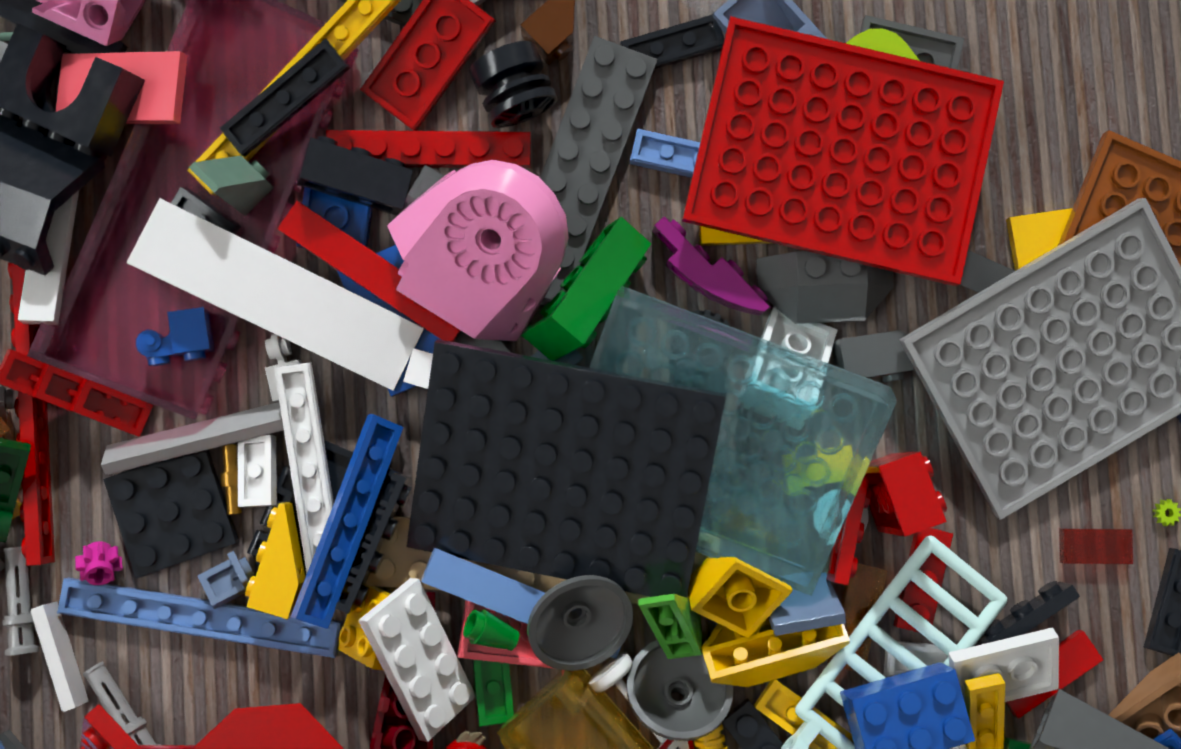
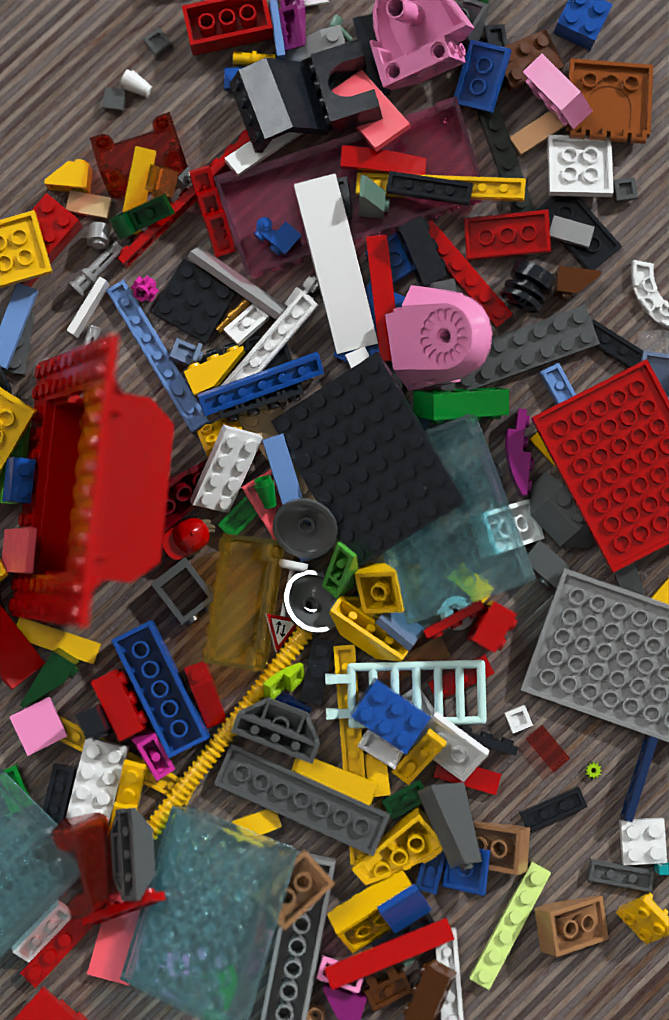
camera: 60 degrees right, 0 degrees up
(197, 129) = (381, 161): none -> red slope
(1032, 552) = (518, 719): none -> white plate

